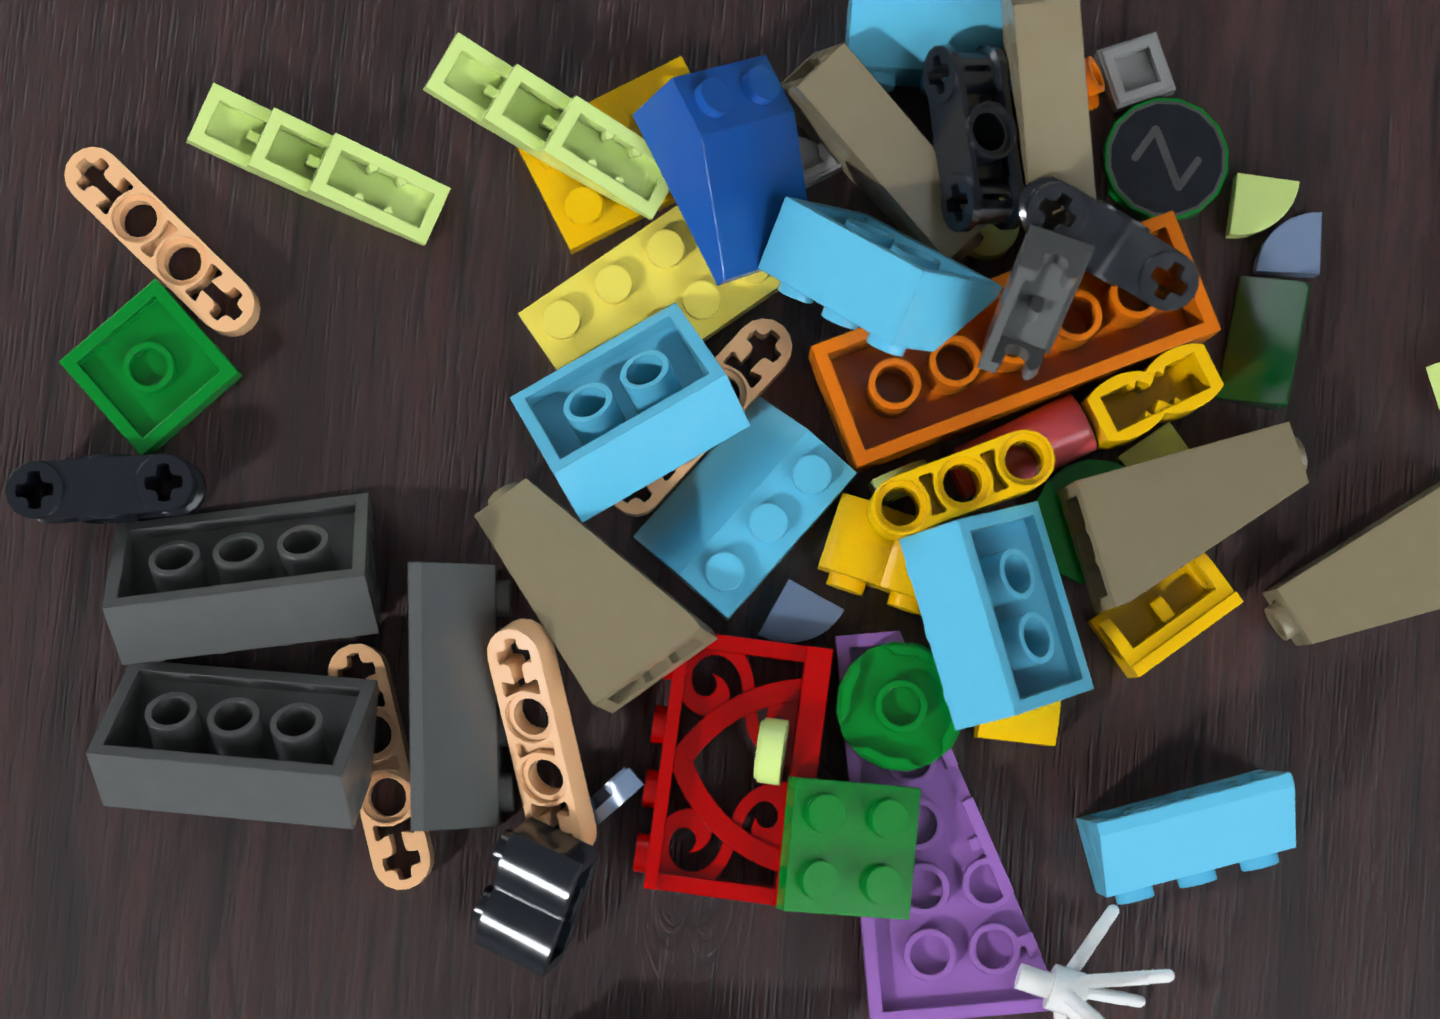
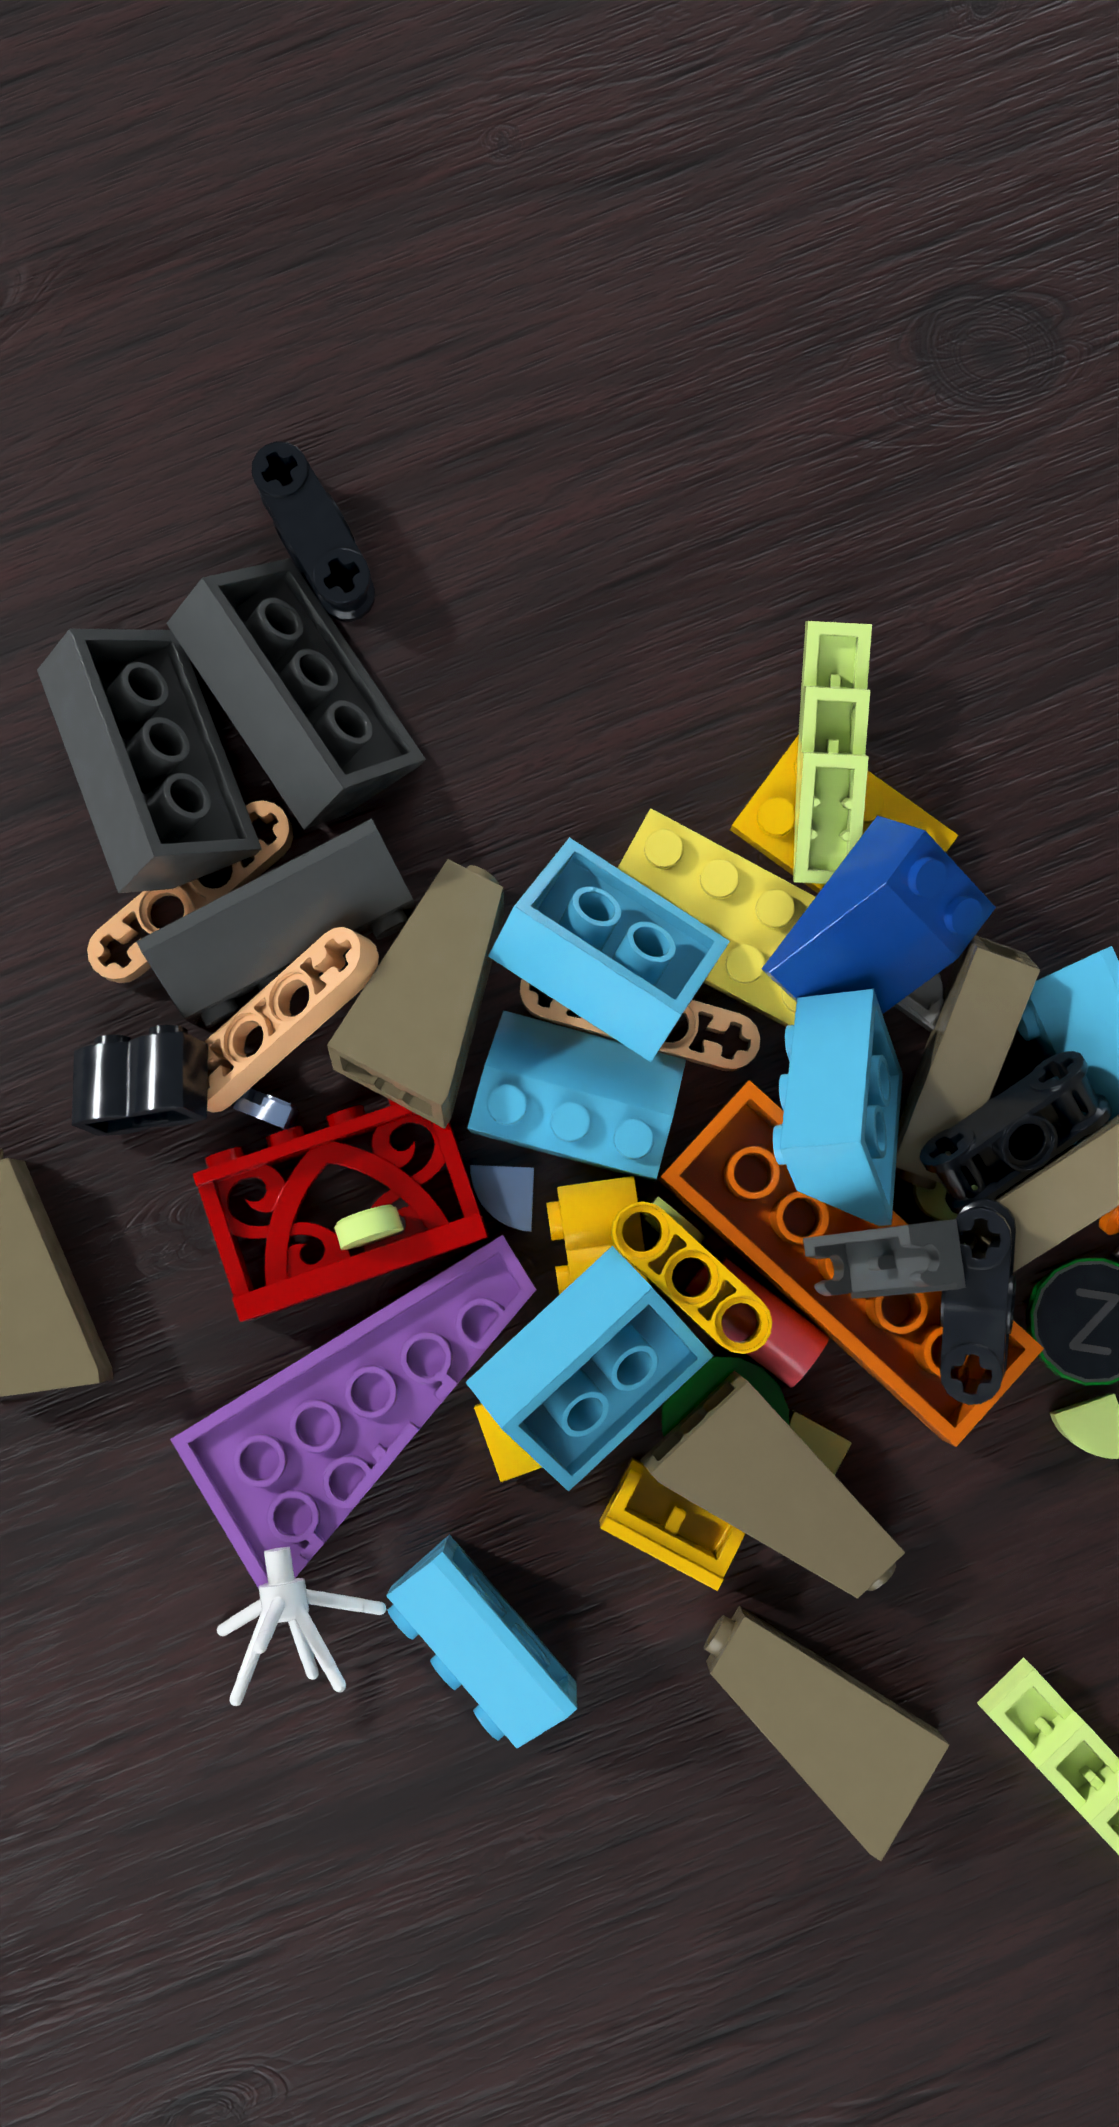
camera: 65 degrees right, 0 degrees up
(150, 368) = (439, 515): green plate -> none
(165, 239) = (555, 468): light nougat beam -> none
(318, 165) = (693, 567): yellowish green slope -> none
(848, 848) = (315, 1339): green plate -> none
(895, 707) = (462, 1319): green tile -> none
(1158, 394) = (873, 1422): yellow brick -> none
(1263, 342) = (969, 1493): dark green slope -> none
(1292, 249) = (1070, 1479): sand blue tile -> none

